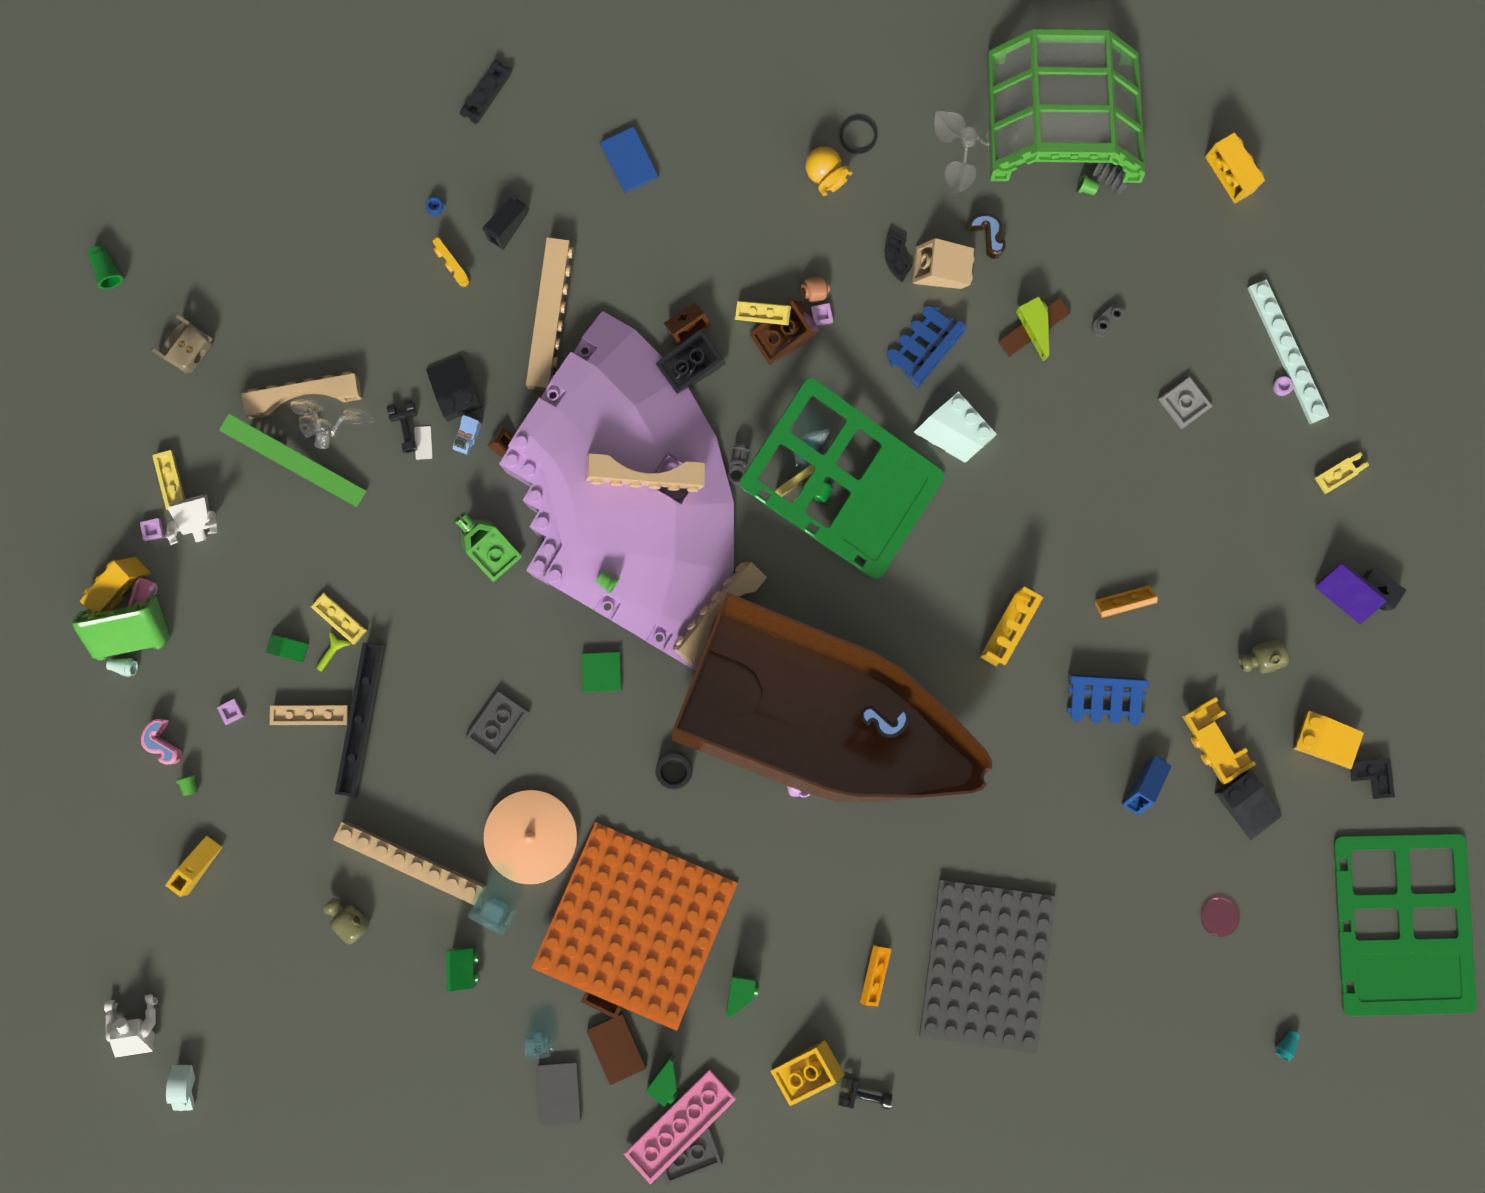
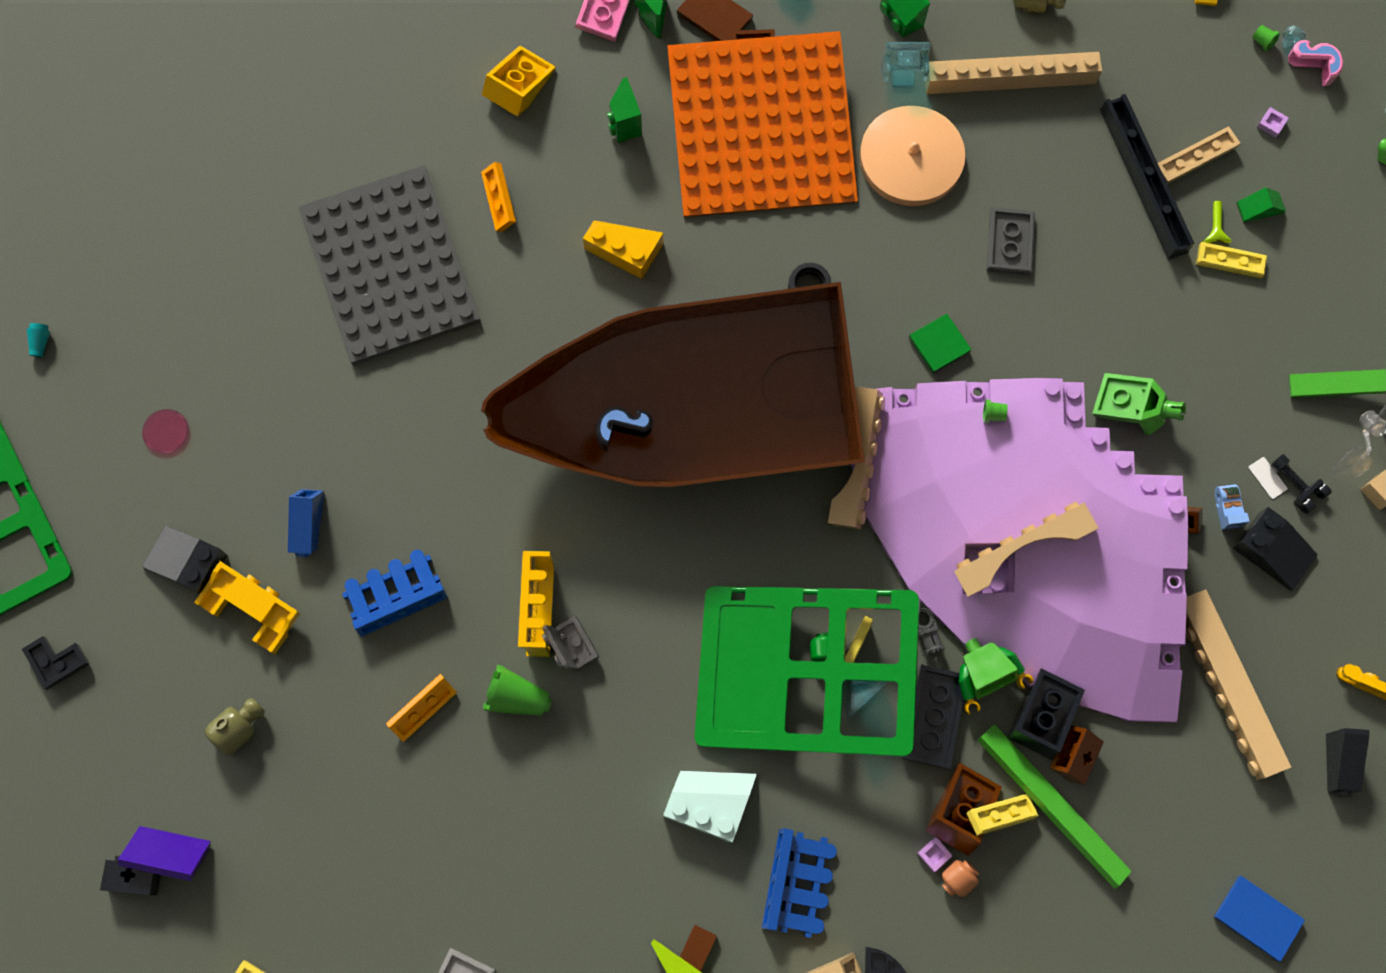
camera: 150 degrees right, 10 degrees down
(163, 773) = (1292, 35): none -> clear light blue tile
(715, 410) = (987, 670): none -> torso
(722, 302) = (1054, 806): none -> bright green tile
(766, 403) = (936, 717): none -> black plate
(799, 879) = (624, 246): none -> yellow wedge
(884, 1100) = (466, 74): black bar -> none
(1000, 588) = (570, 644): none -> flat silver bracket
(1056, 574) = (515, 695): none -> bright green cone
(1328, 739) = (123, 671): yellow slope -> none

